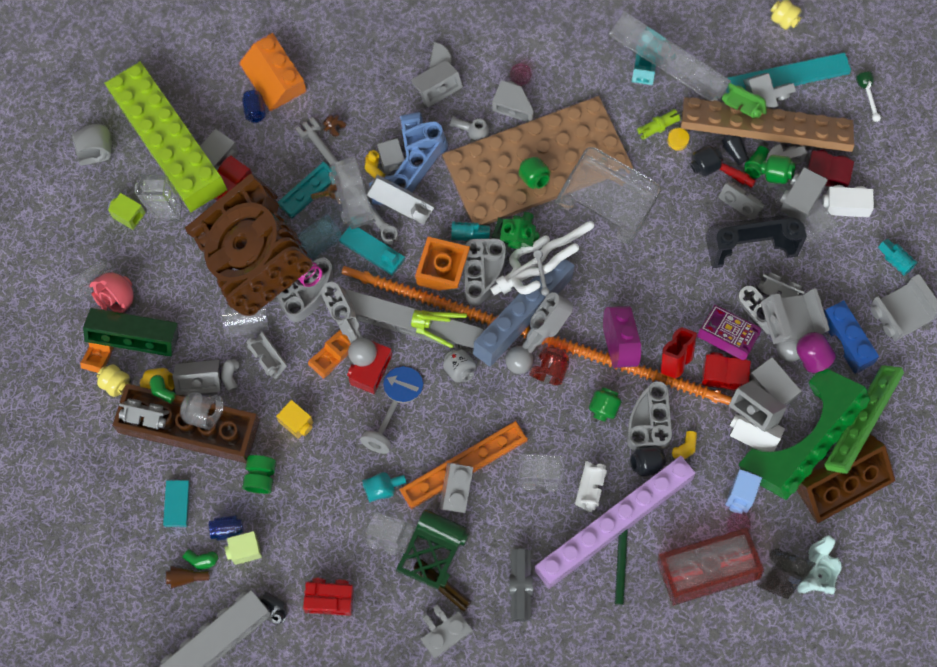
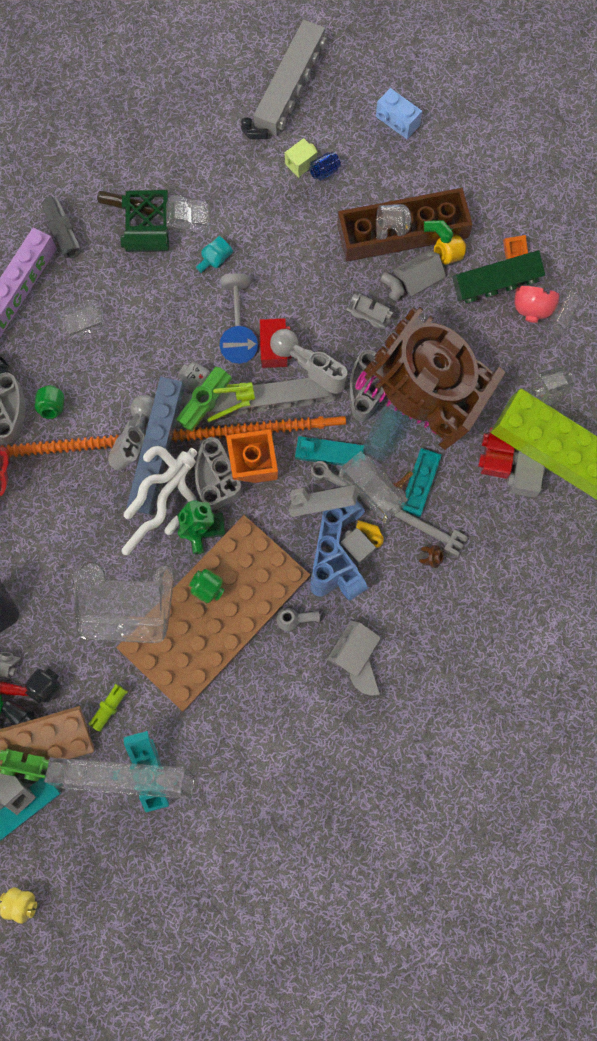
camera: 155 degrees right, 5 degrees up
(112, 380) = (488, 234): light yellow piece -> none
(120, 548) = (398, 113): none -> light blue brick
(126, 211) = (581, 380): lime brick -> none
(152, 414) = (442, 204): light grey hinge -> none
(176, 503) = (376, 170): teal tile -> none
(181, 576) = (340, 118): reddish brown cone -> none
(202, 561) = (334, 136): green arm -> none
(253, 106) = (519, 538): clear blue brick -> none
(259, 473) = (320, 213): green wheel -> none
(272, 72) = (521, 583): orange slope -> none
(295, 420) = (314, 271): yellow brick -> none
(328, 597) = (213, 151): red brick -> none
(331, 355) = (316, 336): orange slope -> none
(446, 634) = (107, 169): light grey hinge -> none
(449, 334) = (195, 410): none -> bright green piece
(456, 487) = (147, 271): light grey brick -> none
(467, 231) = (245, 507): teal hinge -> none
(475, 456) = (153, 303): orange tile -> none
(512, 102) = (267, 662): light grey slope -> none
(520, 74) = (274, 701): clear pink tile -> none
(538, 255) = (159, 487): light grey hinge -> none
(558, 368) = (104, 418): clear red helmet -> none
(588, 492) = (34, 335): white hinge -> none
(621, 336) = (54, 460): magenta brick -> none
(678, 139) = (83, 699): yellow tile -> none

